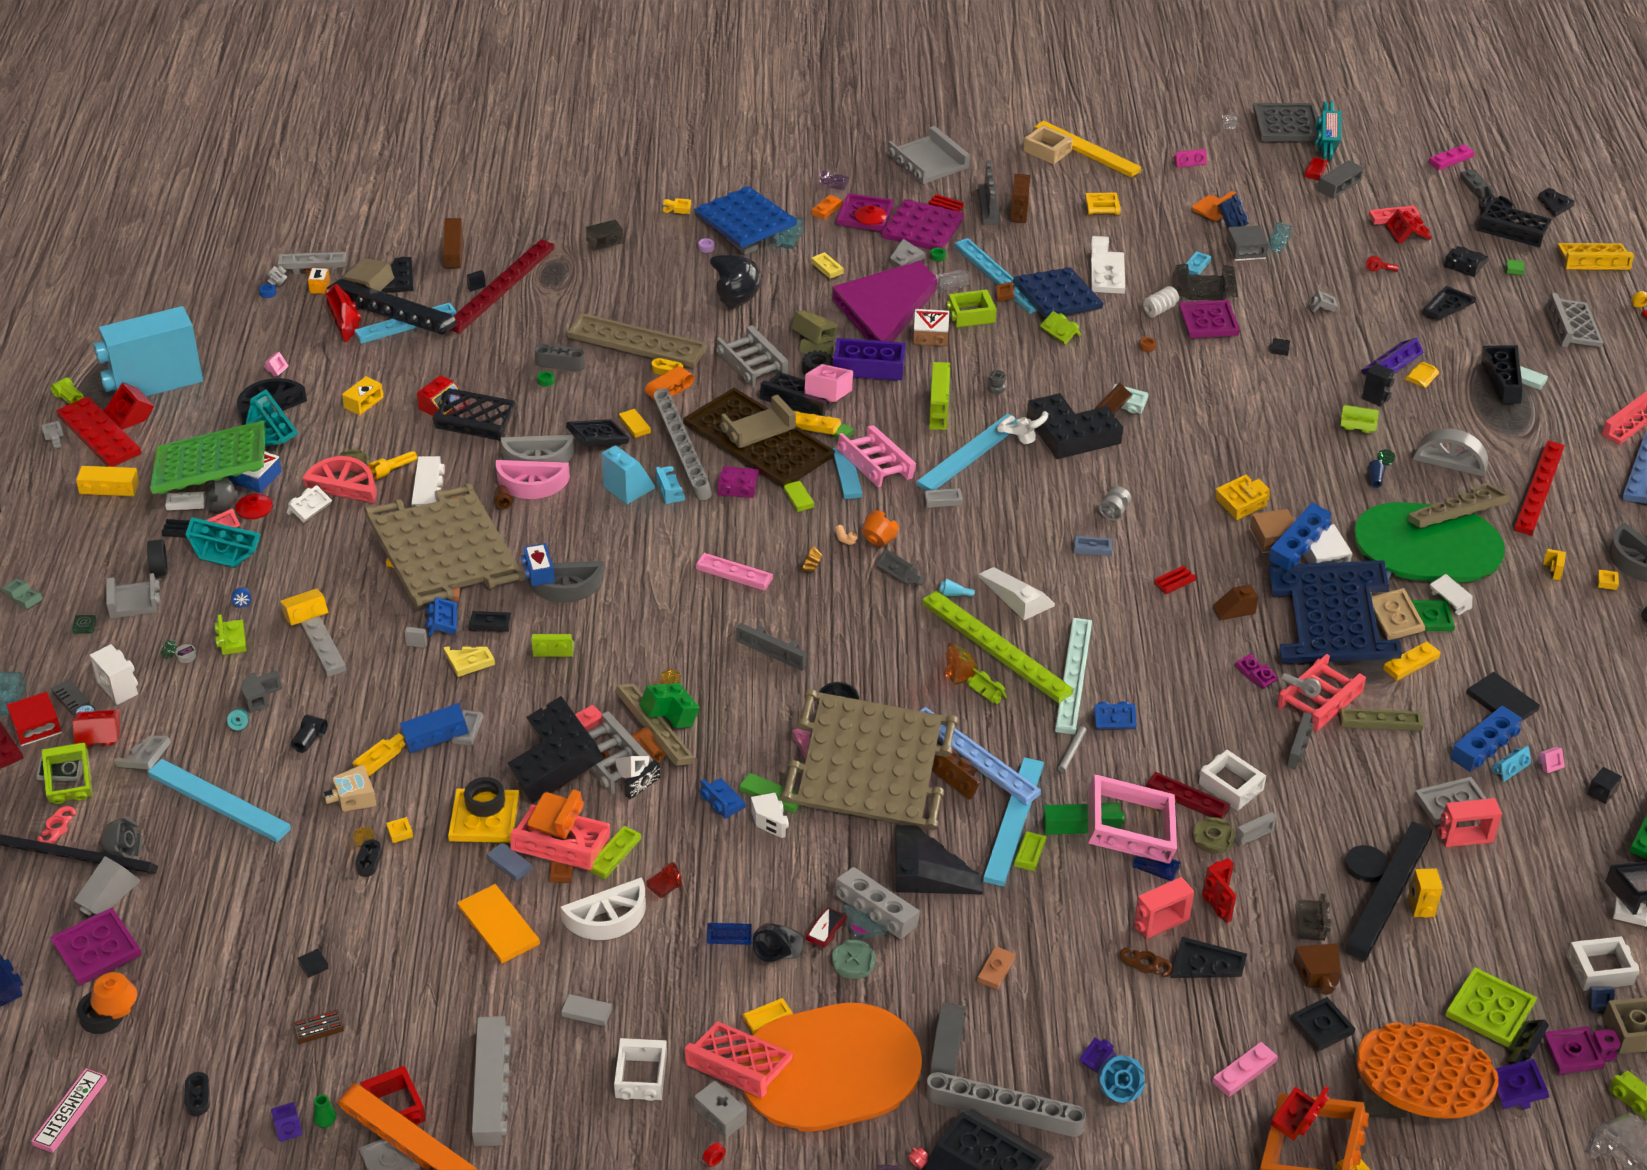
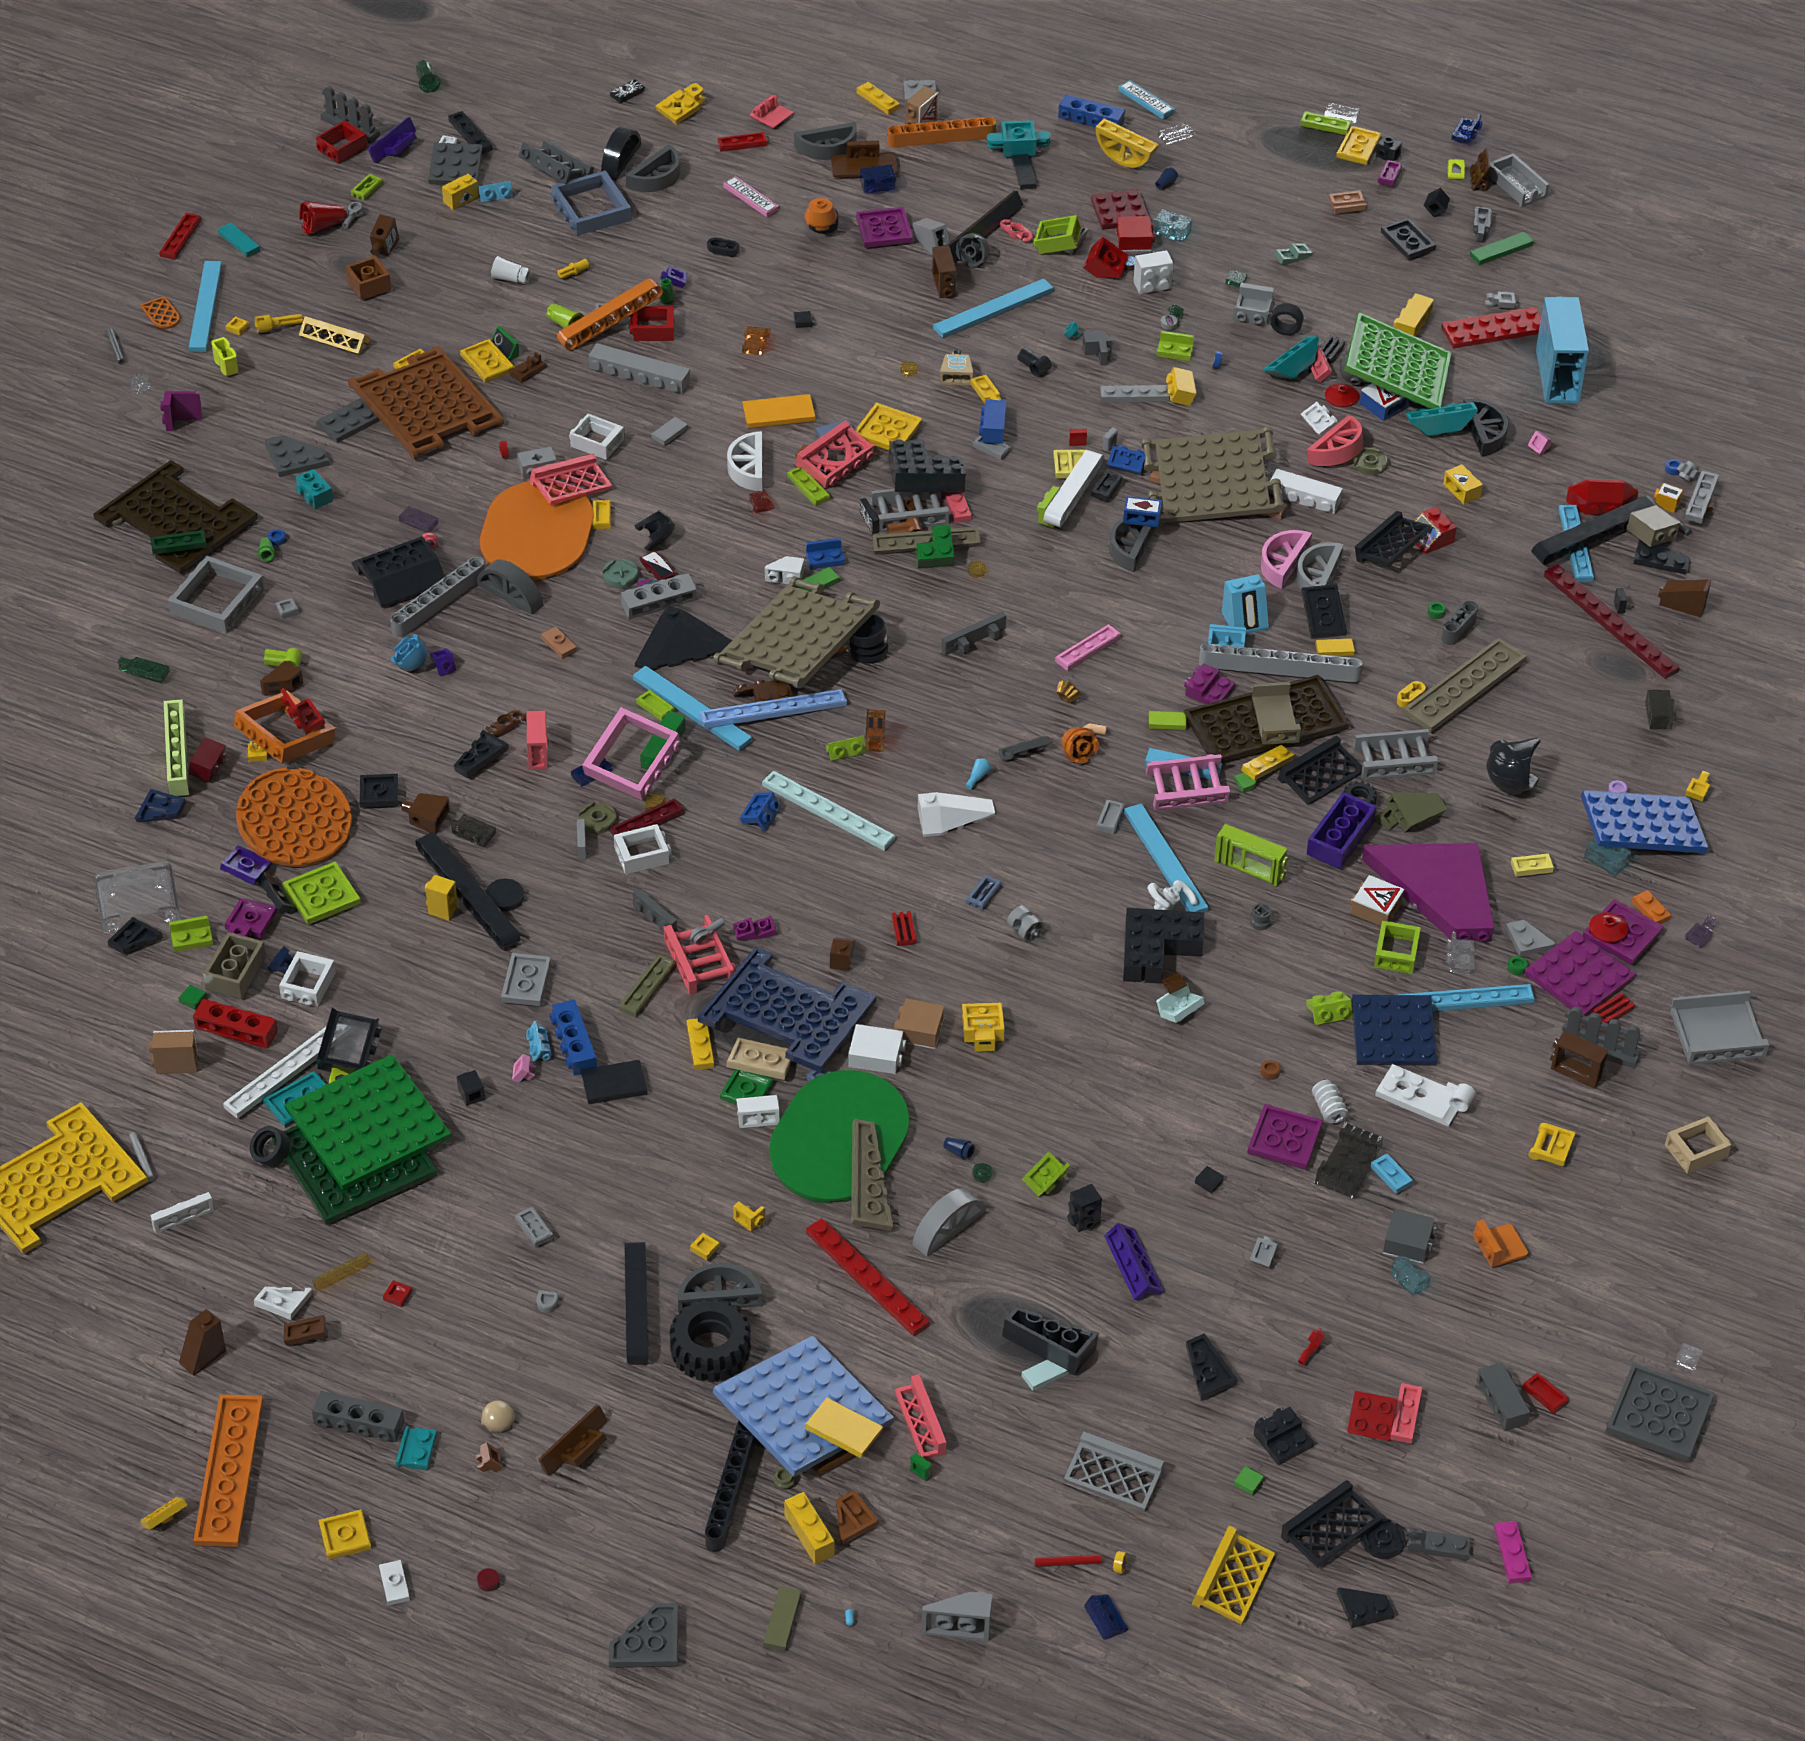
camera: 115 degrees right, 5 degrees up
(128, 406) = (1516, 346): red slope -> none
(145, 754) = (1063, 280): light grey wing -> none
(177, 836) = (944, 271): none -> reddish brown window
(318, 1026) = (744, 310): tile -> none
(364, 857) = (885, 365): black beam -> none
(373, 989) = (755, 339): none -> clear orange cylinder
(382, 467) = (1348, 472): yellow piece -> none
(399, 830) = (900, 383): yellow plate -> none
(424, 661) = (1077, 437): none -> red tile
(488, 808) = (897, 414): black tyre -> none
(502, 497) = (1264, 532): reddish brown cone -> none
(510, 636) = (1073, 488): none -> white beam
(556, 814) = (847, 449): orange bracket -> none
(631, 765) = (877, 501): white brick -> none
(674, 381) = (1379, 684): orange beam -> none
(729, 933) = (684, 514): clear blue tile -> none
(828, 382) = (1308, 778): bright pink brick -> none
(998, 646) = (888, 771): lime plate -> none
(1005, 291) = (1415, 986): dark orange tile -> none
(1072, 749) = (744, 773): light grey bar -> none
(1097, 153) = (1681, 1185): yellow tile -> none
(1190, 158) = (1616, 1267): dark pink hinge -> none
(1217, 889) = (529, 777): red bracket -> none
(1233, 212) = (1462, 1236): dark blue plate -> none
(1245, 1069) = (376, 734): bright pink plate -> none
(1300, 536) = (884, 1014): blue brick -> none
(1328, 130) = (1595, 1414): teal brick -> none
(1422, 374) = (1100, 1281): yellow piece -> none
(1482, 809) = (488, 963): coral window -> none

